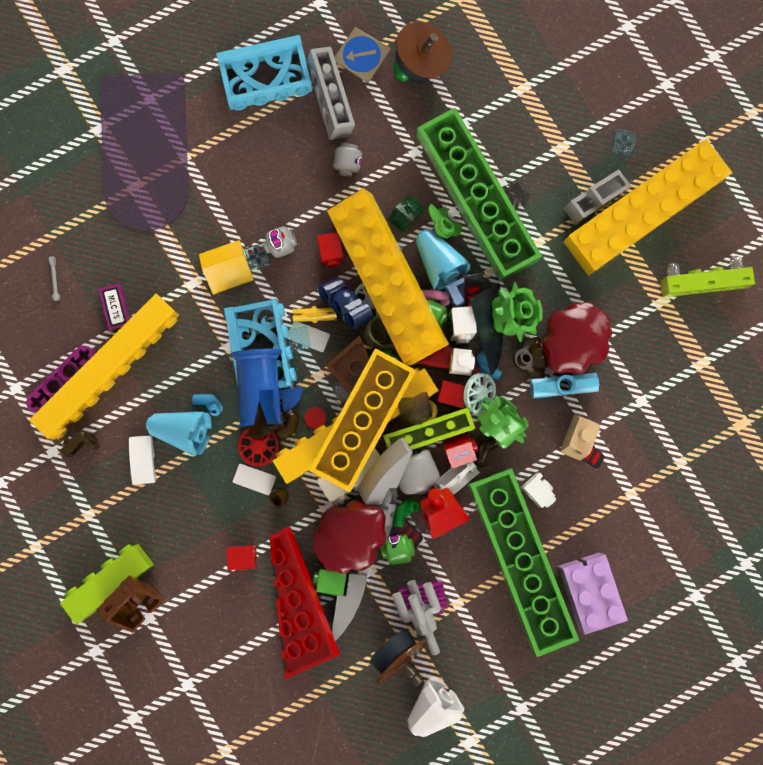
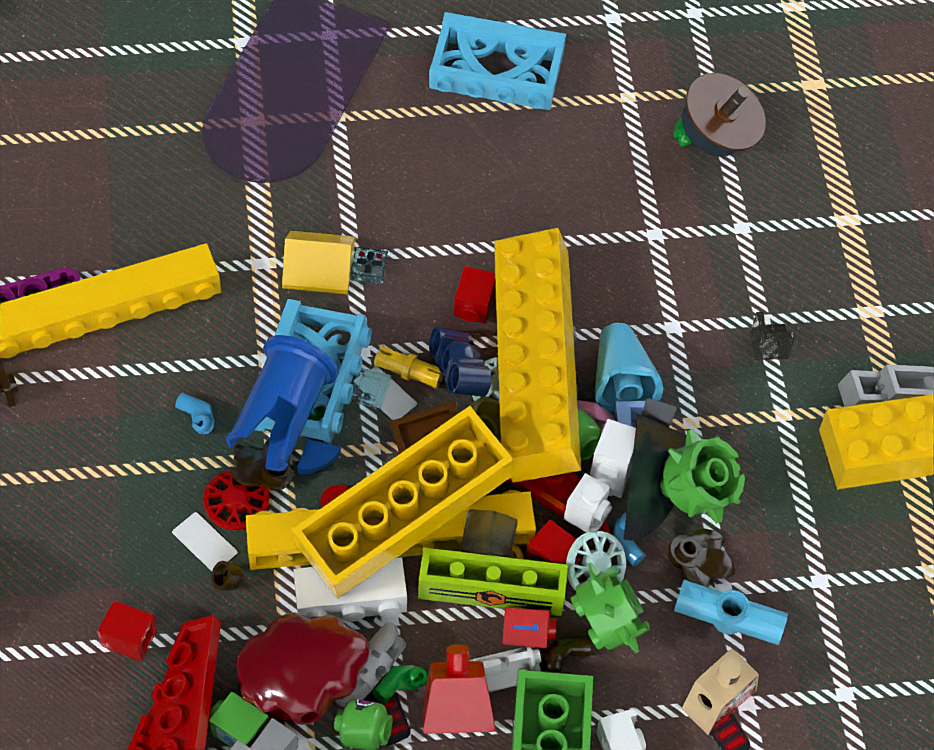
camera: 30 degrees right, 25 degrees down
(55, 296) = (71, 201): light grey hinge -> none
(114, 306) = (141, 240): tile -> none
(141, 459) = (62, 442): white slope -> none
(182, 430) = (144, 425): medium azure cone -> none
(280, 241) = (409, 257): light grey head -> none
(291, 425) = (296, 493): dark brown arm -> none
(330, 93) = (572, 115): light grey brick -> none
(347, 159) = (555, 199): light grey head -> none
(361, 54) = (639, 91): piece -> none
(385, 473) = (398, 595): light grey slope -> none
(406, 213) = (604, 294): clear green bracket -> none
(419, 473) = (443, 621): light grey head -> none
(442, 224) = (650, 326): bright green plate -> none
(478, 194) = (719, 315): bright green brick -> none
(576, 338) = (779, 553): dark red piece -> none

